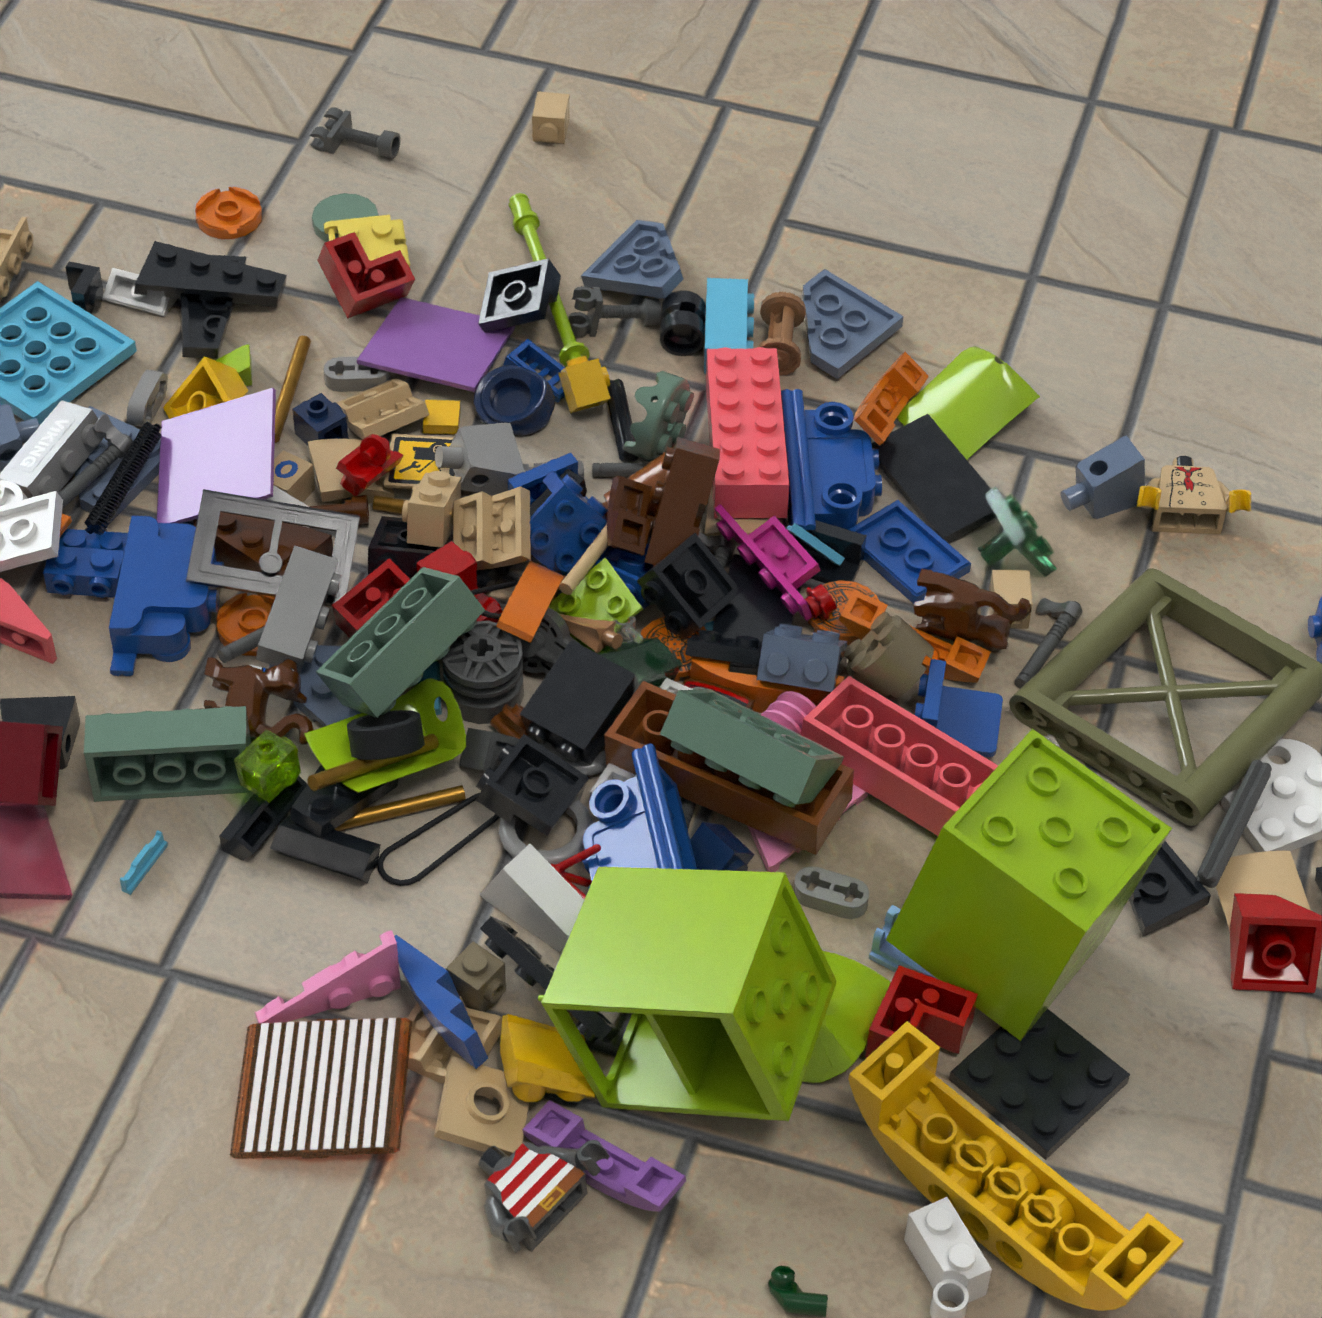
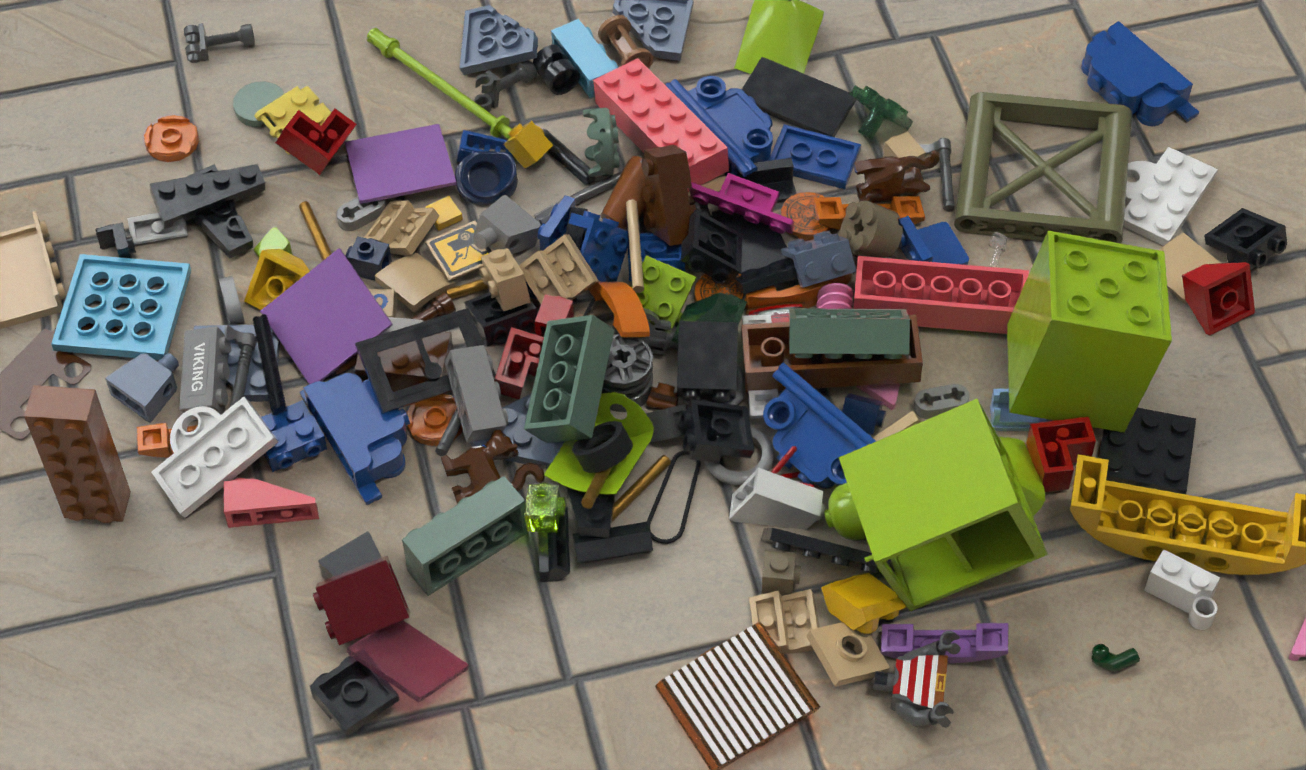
camera: 30 degrees left, 5 degrees up
(143, 863) = (499, 618): medium azure piece -> none
(340, 984) = (697, 626): bright pink wing -> none
(367, 464) = (435, 270): red hips -> none
(440, 1002) = (763, 597): blue slope -> none
(519, 295) = (434, 102): black plate -> none
(594, 633) = (677, 309): medium nougat piece -> none
(626, 515) = (636, 213): reddish brown slope -> none
(628, 630) = (697, 297): clear hand -> none
(815, 544) = (764, 179): medium azure piece -> none
(820, 601) = (797, 214): red plate -> none
(889, 397) = (724, 51): orange slope -> none
(1107, 480) = (907, 47): sand blue torso -> none
(1190, 499) = (961, 35): tan torso -> none
(1234, 823) = (1140, 217): dark grey axle -> none

